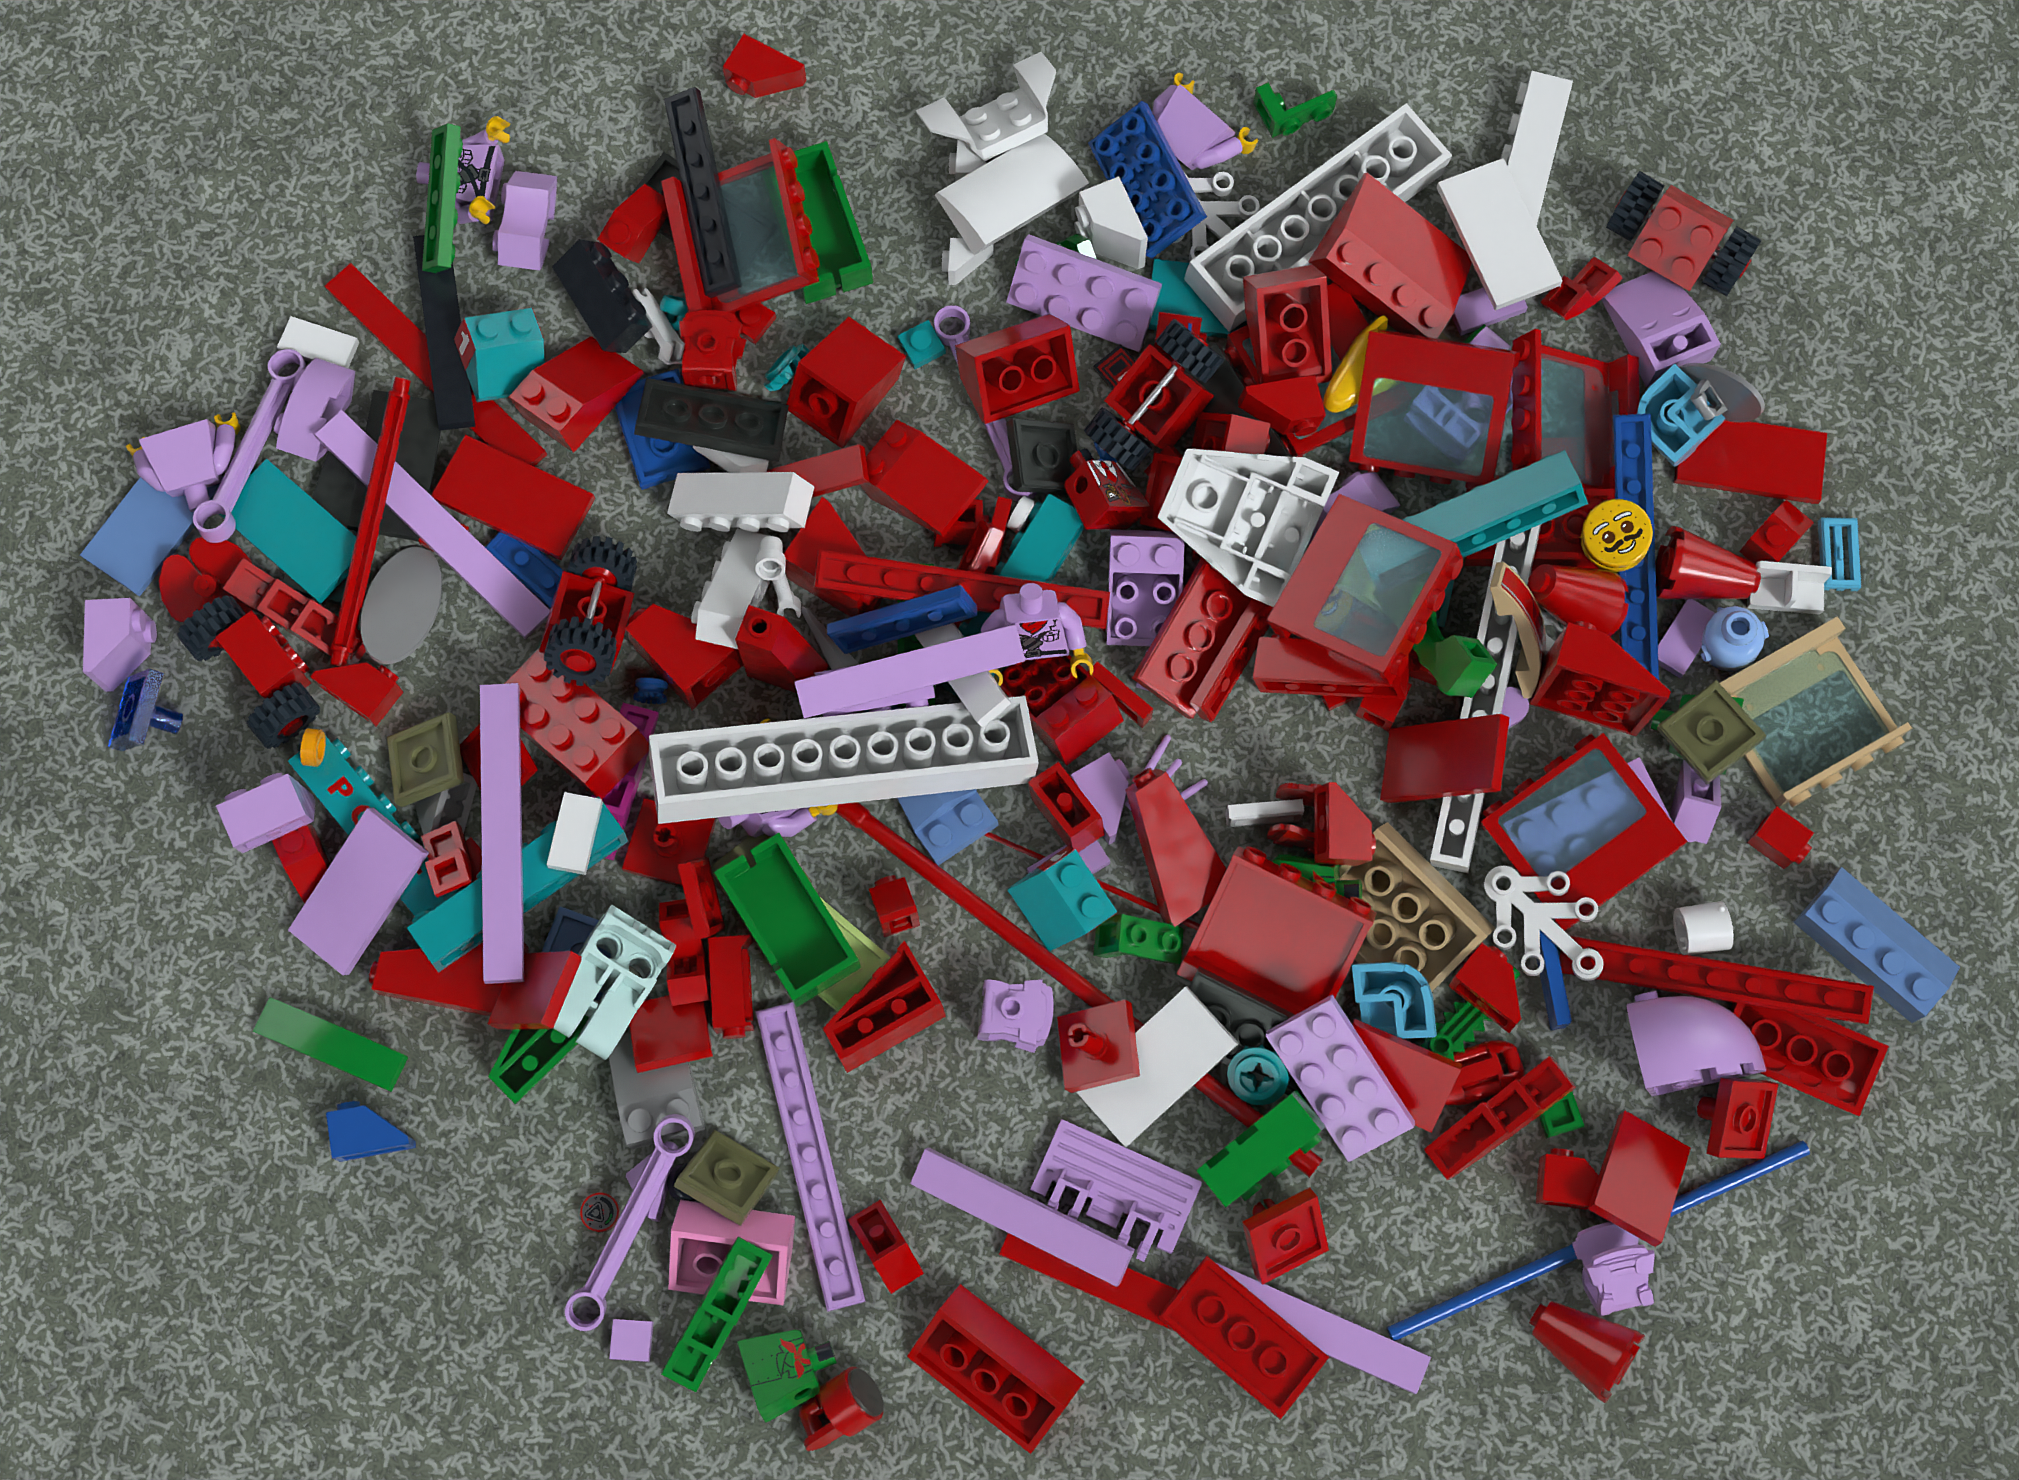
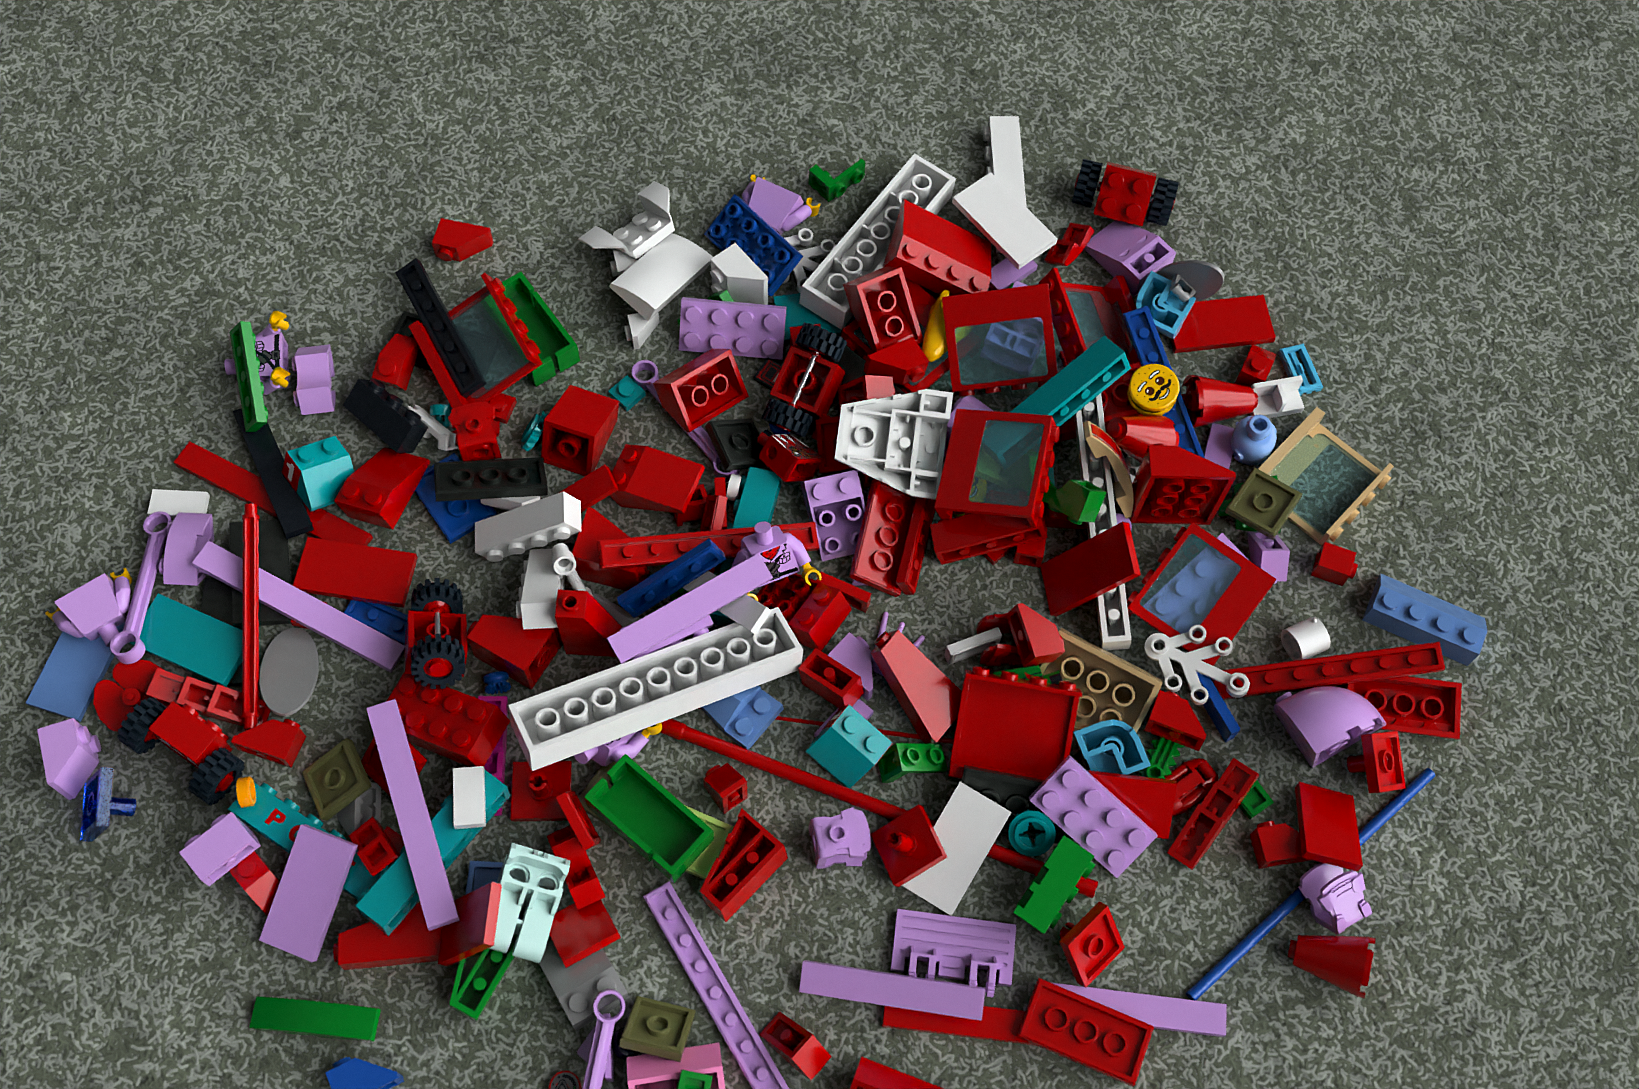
camera: 20 degrees left, 10 degrees down
(731, 985) = (619, 881): red window -> none

